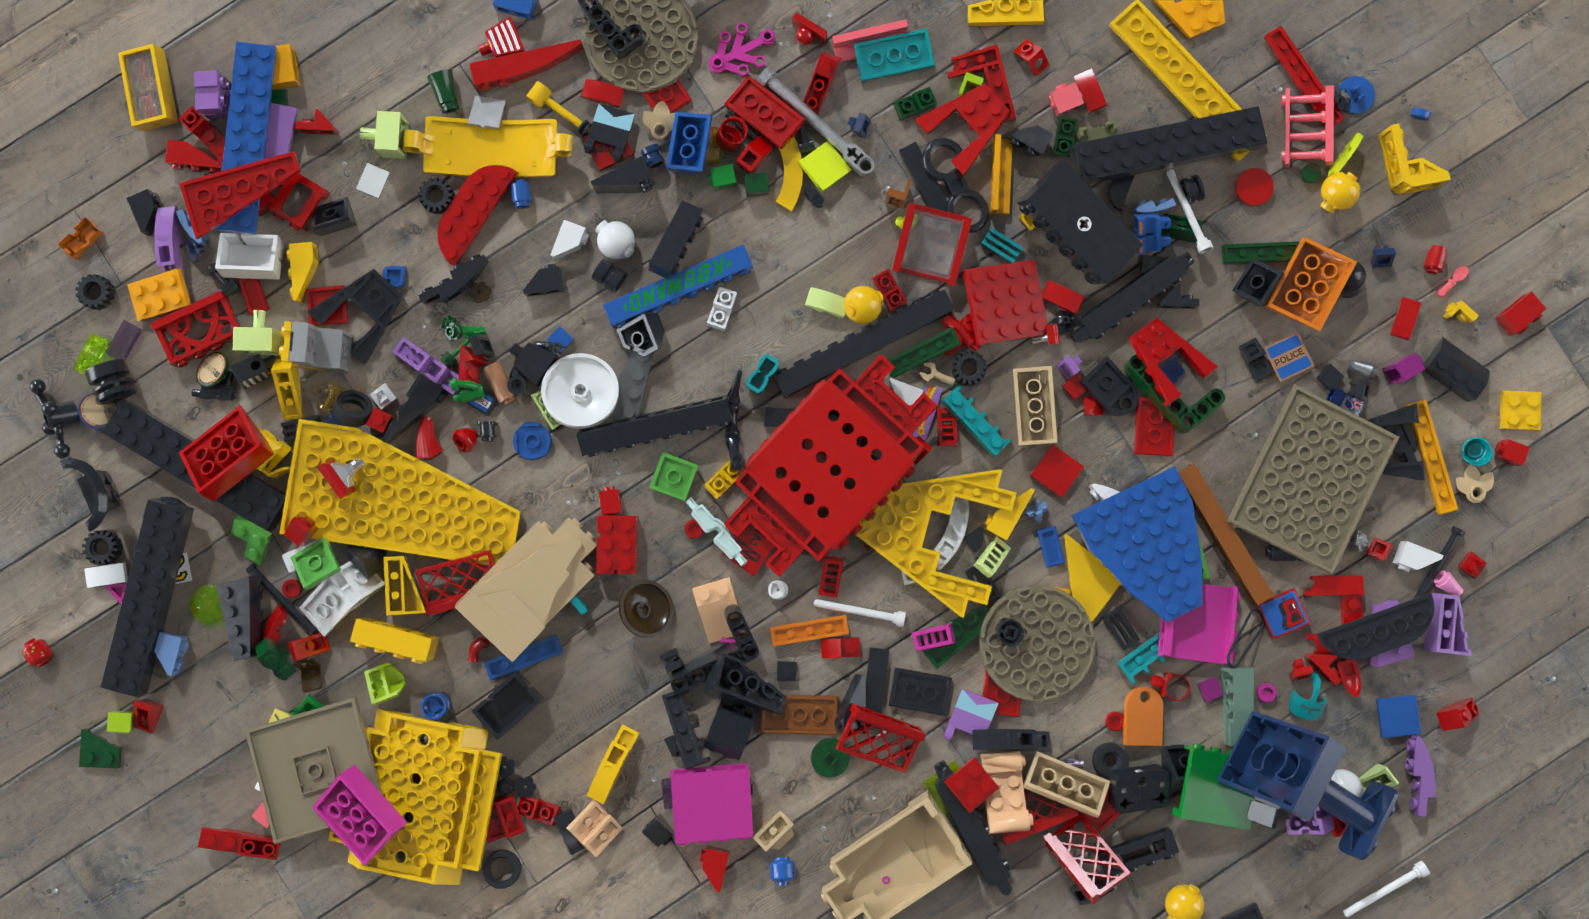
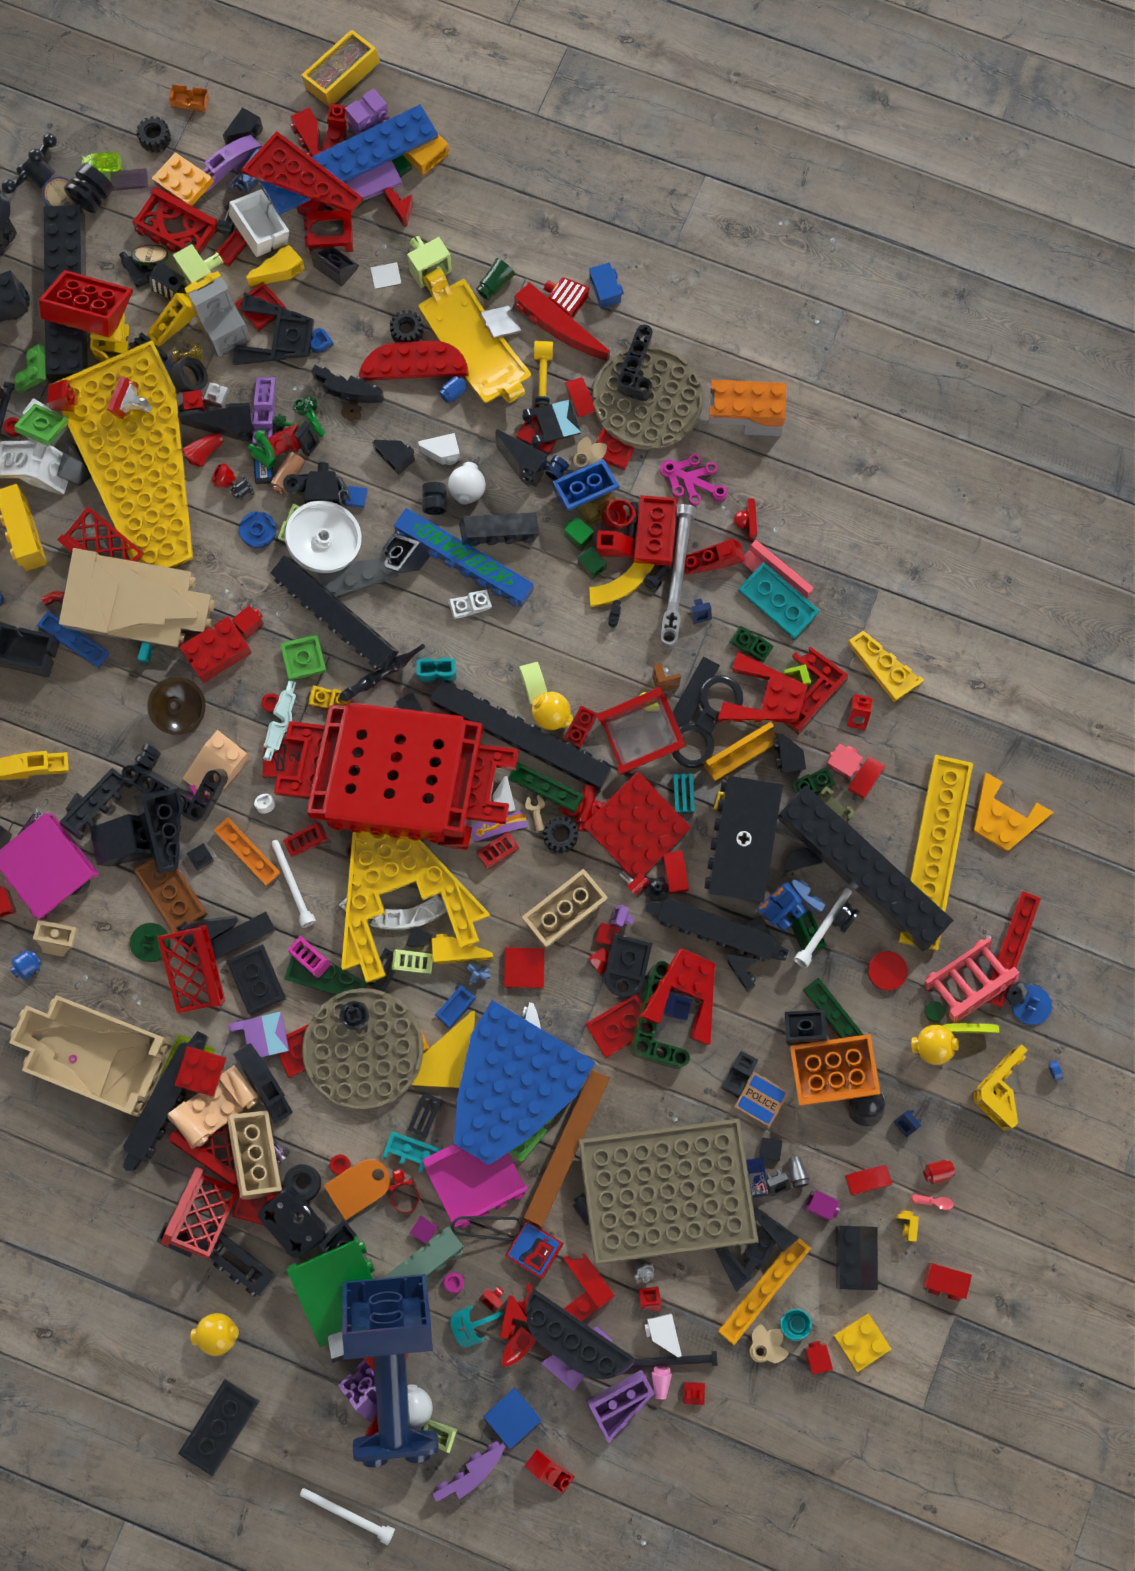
camera: 55 degrees right, 10 degrees down
(401, 588) = (67, 505): yellow wedge -> none
(824, 166) = (646, 606): neon yellow tile -> none
(840, 647) = (250, 888): red slope -> none
(974, 422) = (518, 870): teal hinge -> none

